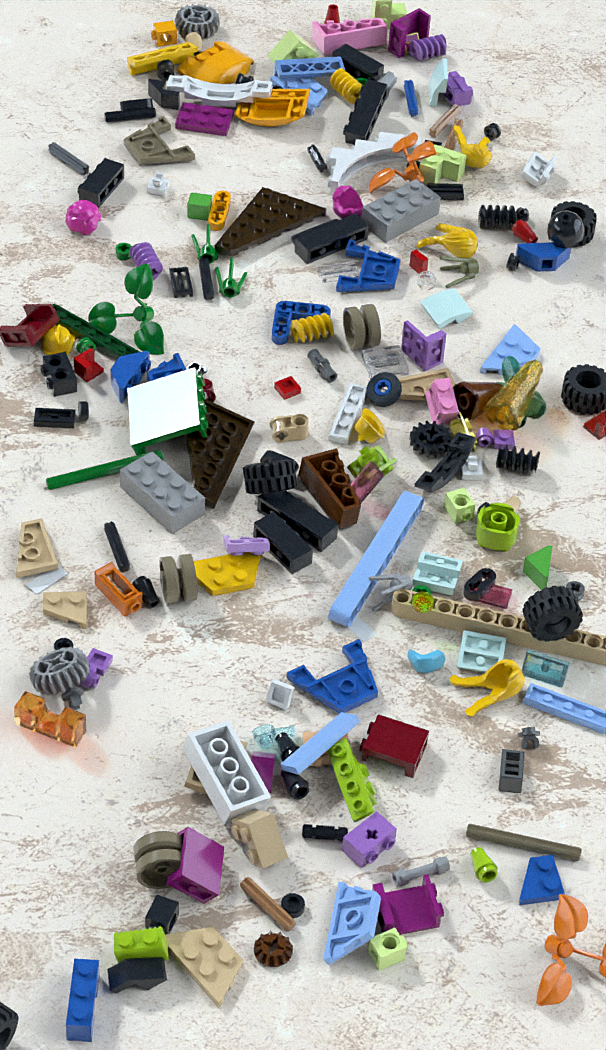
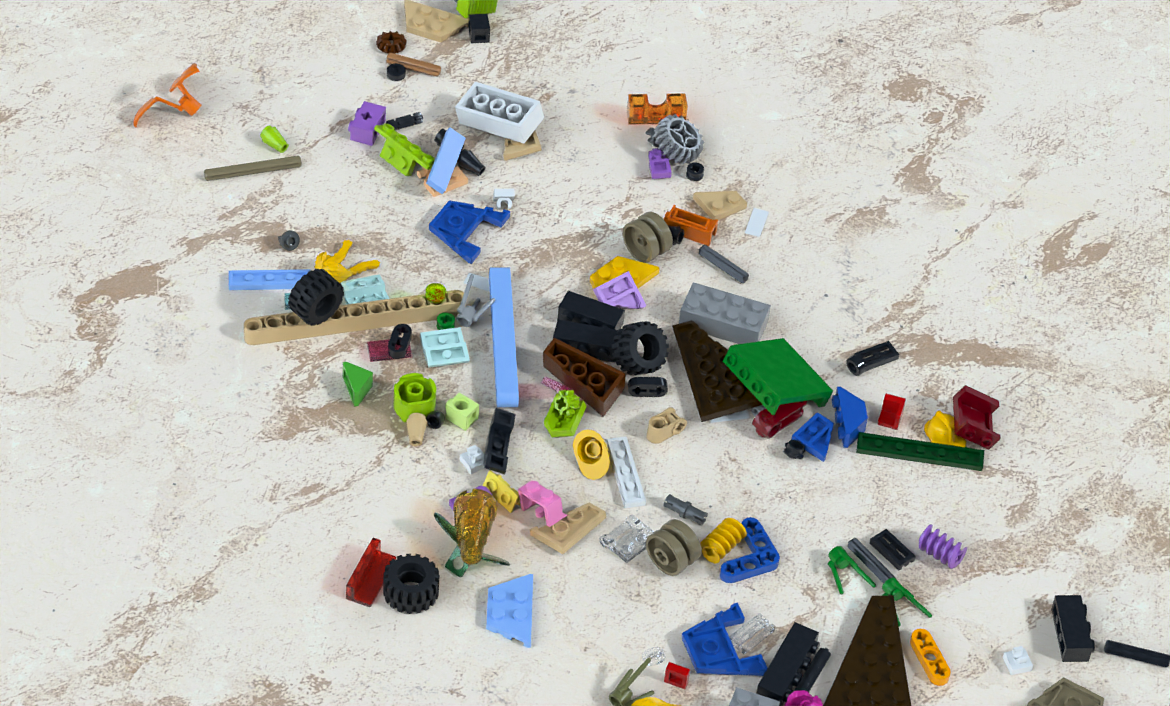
camera: 150 degrees right, 0 degrees up
(35, 550) = (782, 232): tan wing -> none
(59, 374) = (907, 386): black brick -> none
(83, 217) = (1047, 572): dark pink hair -> none
(85, 344) = (911, 429): green bush -> none
(94, 471) = (801, 315): green axle -> none
(119, 251) = (978, 554): green bush -> none
(150, 336) = (892, 482): green plant -> none
(157, 857) = (502, 46): dark tan wheel -> none
(199, 206) = (950, 640): bright green panel -> none
(199, 867) = (476, 53): magenta panel -> none
(261, 835) = (447, 85): tan brick -> none
(264, 764) = (481, 145): magenta slope -> none
(265, 734) = (494, 166): clear light blue bar -> none
(287, 387) = (700, 474): red tile -> none
(351, 921) = (347, 68): light blue wing -> none
(387, 957) = (311, 63): yellowish green brick -> none
(390, 395) = (607, 499): black bush -> none
(395, 743) = (390, 189): dark red panel -> none
(402, 877) = (306, 129): light grey bar -> none
(409, 908) = (316, 96): magenta panel -> none
(423, 350) = (603, 551): medium lavender bracket -> none
(427, 662) = (407, 263): medium azure hair -> none
(430, 439) = (529, 466): black gear -> none
(446, 307) = (611, 633): light aqua slope -> none
(473, 396) = (511, 523): reddish brown cone -> none
(511, 771) = (289, 201): dark grey slope -> none
(517, 459) = (435, 476): black piece -> none
(541, 881) = (224, 148): blue wing -> none
(575, 585) = (315, 374): dark grey bush -> none

